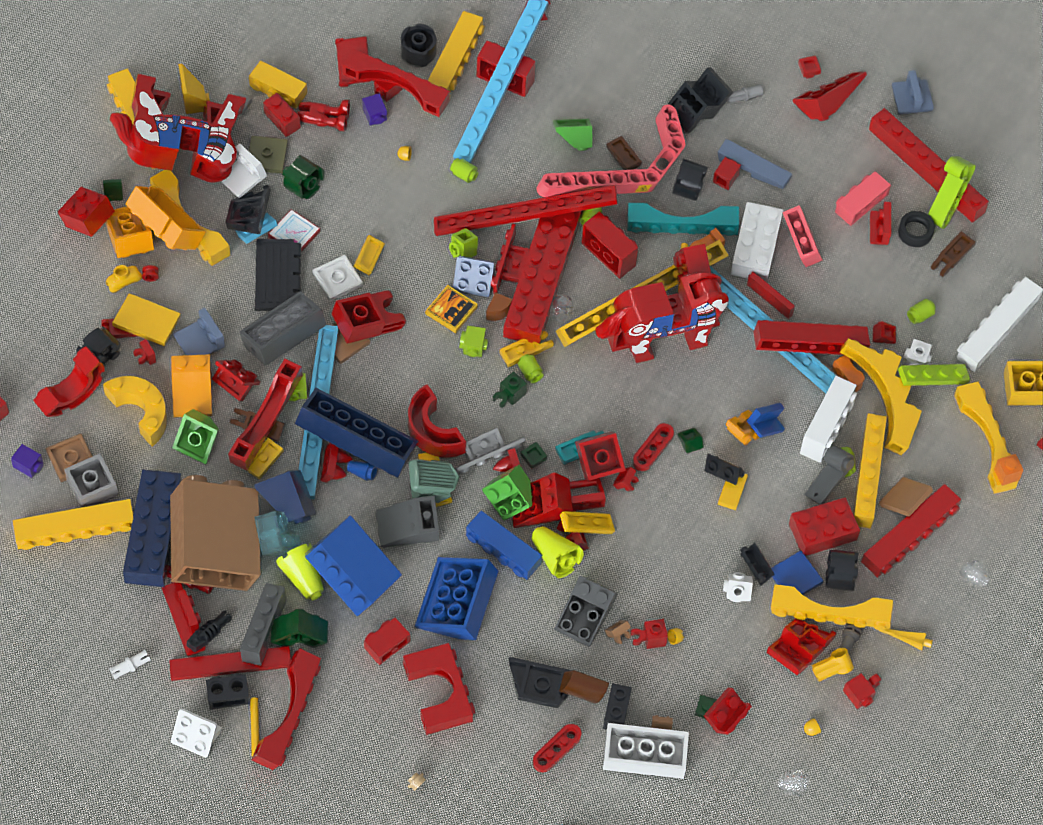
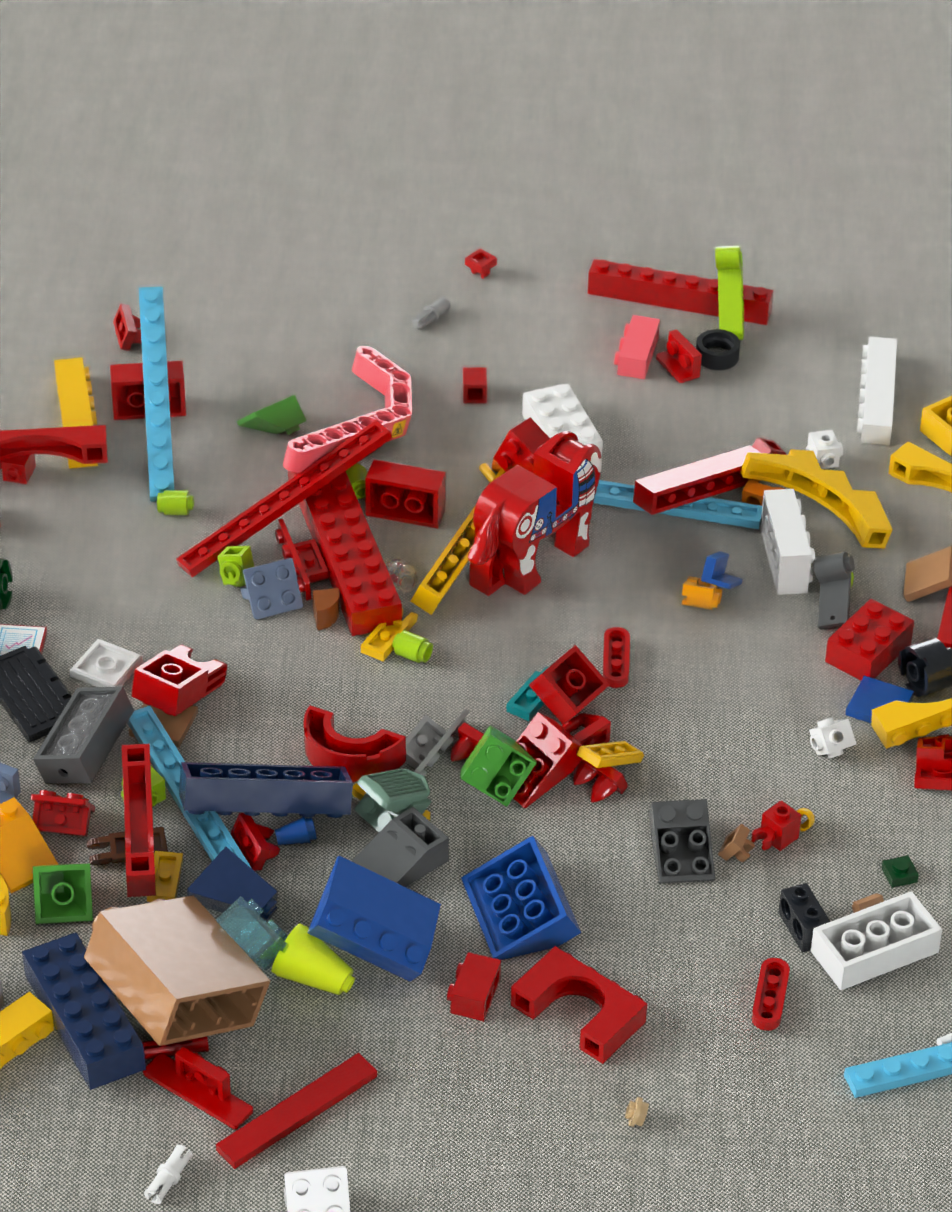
camera: 30 degrees left, 20 degrees down
(208, 632) = (245, 1084): black hinge -> none
(228, 696) = (321, 1137): black brick -> none
(254, 710) = (386, 1162): yellow bar -> none
(257, 635) = (311, 1040): dark grey arch -> none
(299, 628) = (356, 1021): dark green brick -> none
(301, 672) = (400, 1070): red arch -> none
(368, 255) = (127, 627): yellow tile -> none
(374, 109) = (20, 491): dark purple brick -> none
(405, 153) = (89, 517): yellow hinge -> none
(418, 45) = (25, 408): black brick -> none
(451, 309) = (269, 635): tile -> none
(473, 341) = (324, 650): lime brick -> none
(503, 545) = (514, 822): blue brick -> none
(511, 390) = (409, 673): dark green brick -> none
(534, 455) = (486, 719): dark green plate -> none
(537, 682) = (693, 938): black wing -> none
(557, 551) = (597, 799): neon yellow cone -> none
(583, 686) = (750, 910): reddish brown brick -> none
(623, 154) = (337, 412): reddish brown plate -> none
(624, 478) = (613, 699): red tile -> none
(644, 218) = (454, 452): teal arch -> none
(689, 179) = (441, 402): black brick -> none
(691, 440) = (650, 634): dark green slope -> none
(700, 99) = (391, 327): black bracket -> none
(723, 469) = (713, 638): black hinge -> none
(727, 712) = (929, 862): red bracket -> none
(732, 493) = (738, 657): yellow tile -> none
(757, 563) = (825, 706): black hinge -> none
(758, 167) = (506, 366): sand blue slope -> none
(770, 295) = (626, 467): red tile -> none
(802, 236) = (608, 400): coral brick -> none
(829, 98) = (523, 282): red wedge -> none
(869, 470) = (871, 571): yellow brick -> none
(912, 95) = (607, 242): sand blue bracket -> none
(921, 311) = (789, 413): lime brick -> none
(934, 374) = (856, 456): lime plate -> none
(954, 253) = (774, 353): reddish brown hinge -> none

